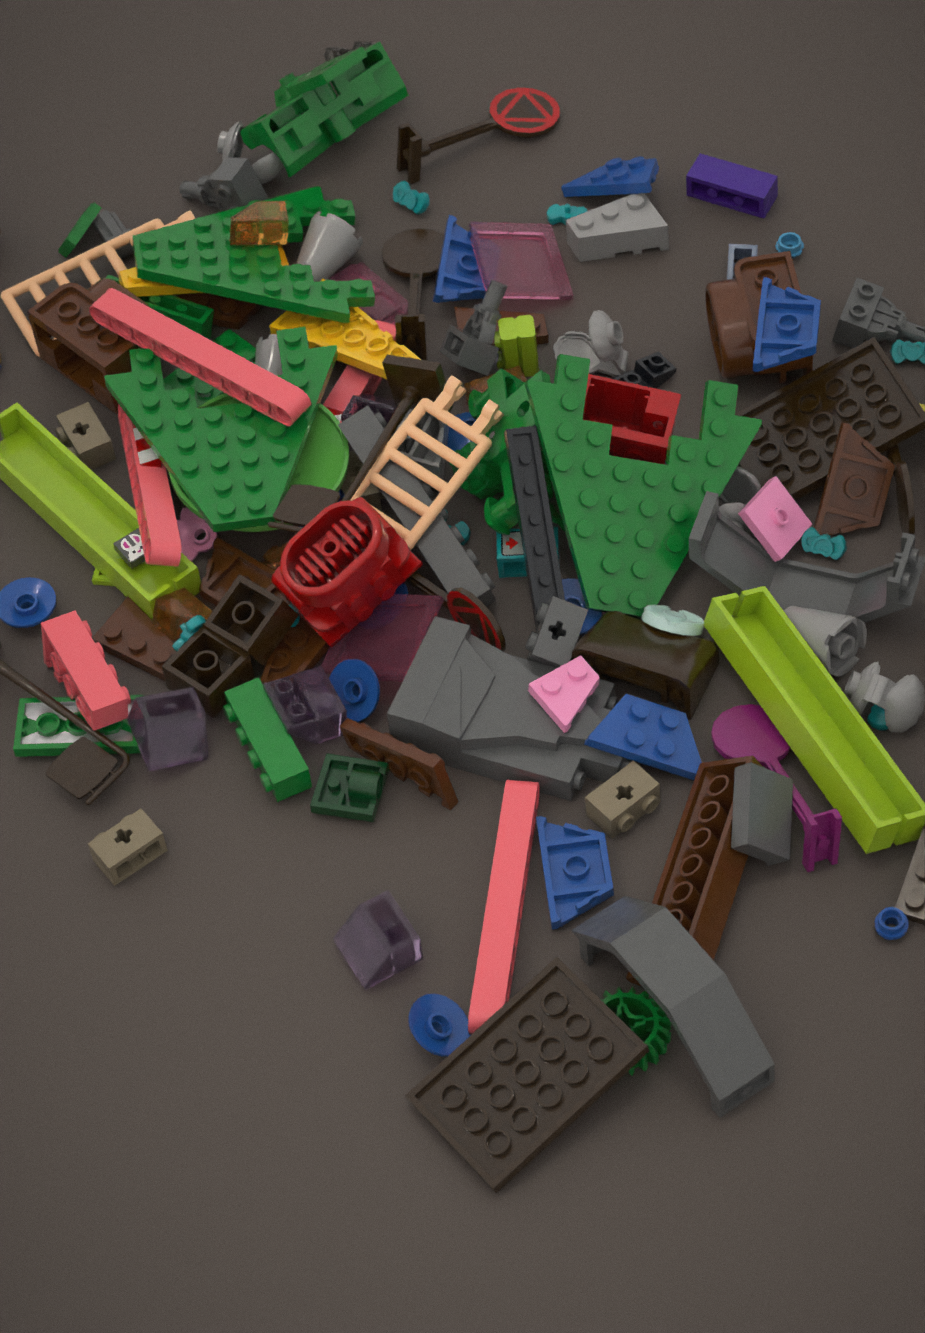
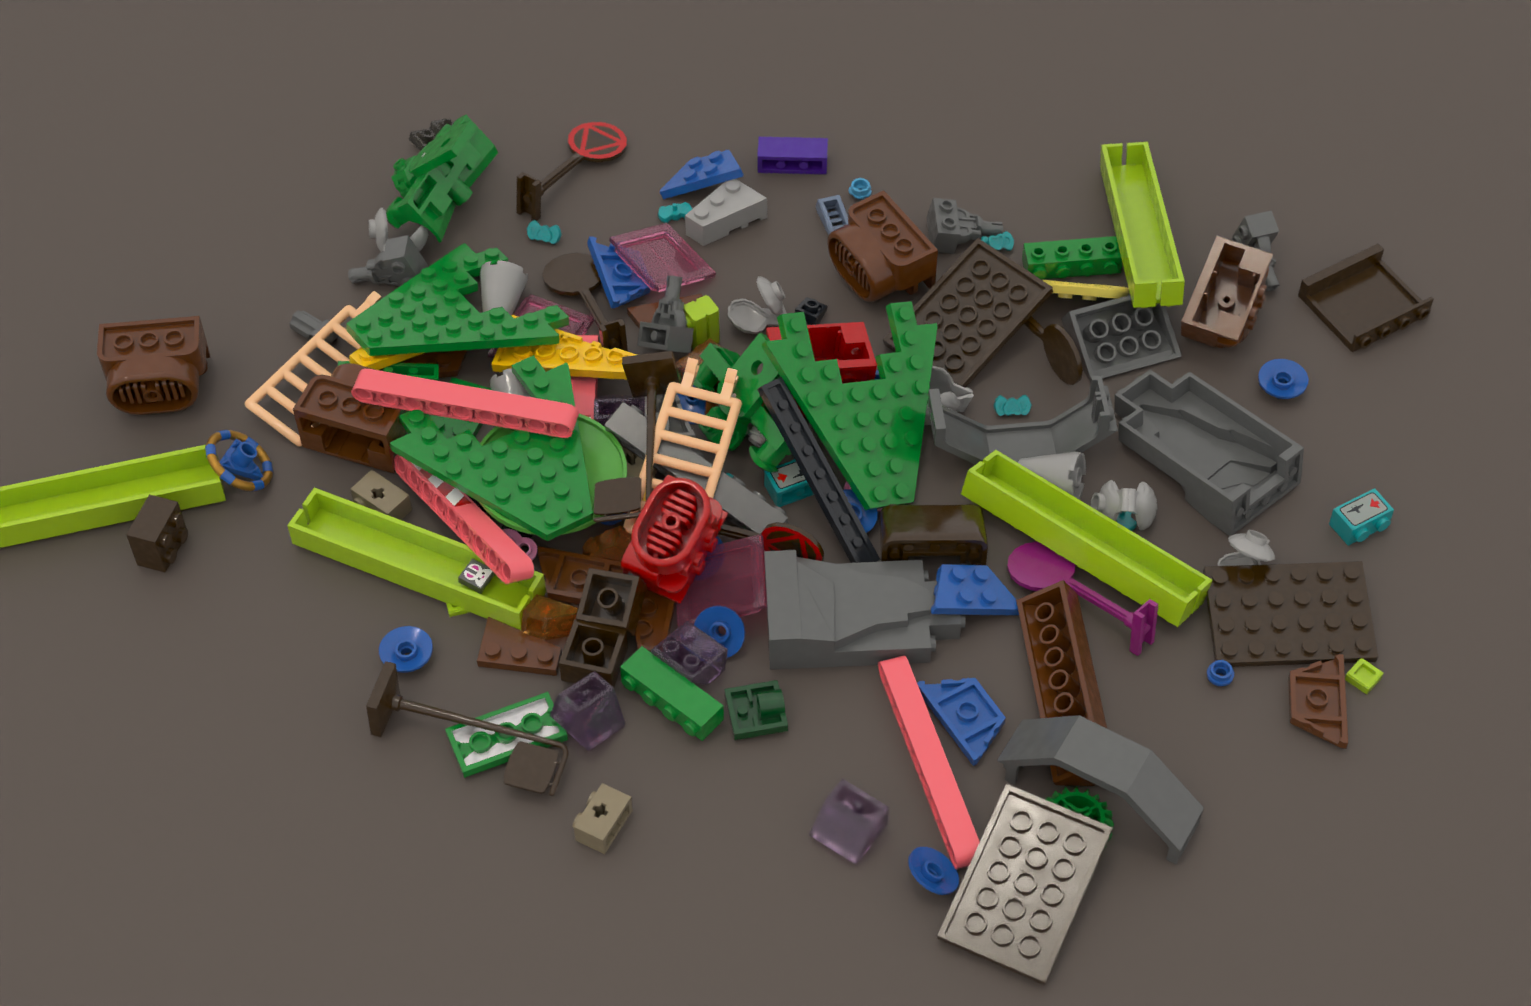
camera: 30 degrees left, 0 degrees up
(79, 229) = (280, 333): green tile -> none
(83, 670) = (494, 688): coral wedge -> none
(189, 630) = (563, 629): teal piece -> none
(260, 224) = (450, 284): clear orange slope -> none
(403, 760) = (795, 672): reddish brown wing -> none
(565, 691) = (895, 577): bright pink wing -> none
(567, 620) = (860, 535): dark grey brick -> none
(623, 799) = (973, 647): dark tan brick -> none
(672, 621) = (937, 497): light aqua tile -> none
(762, 813) = (1091, 622): dark grey container -> none
(775, 519) = (973, 397): bright pink plate -> none
(785, 326) = (916, 247): blue wing -> none
(854, 485) = (1017, 354): reddish brown wing -> none

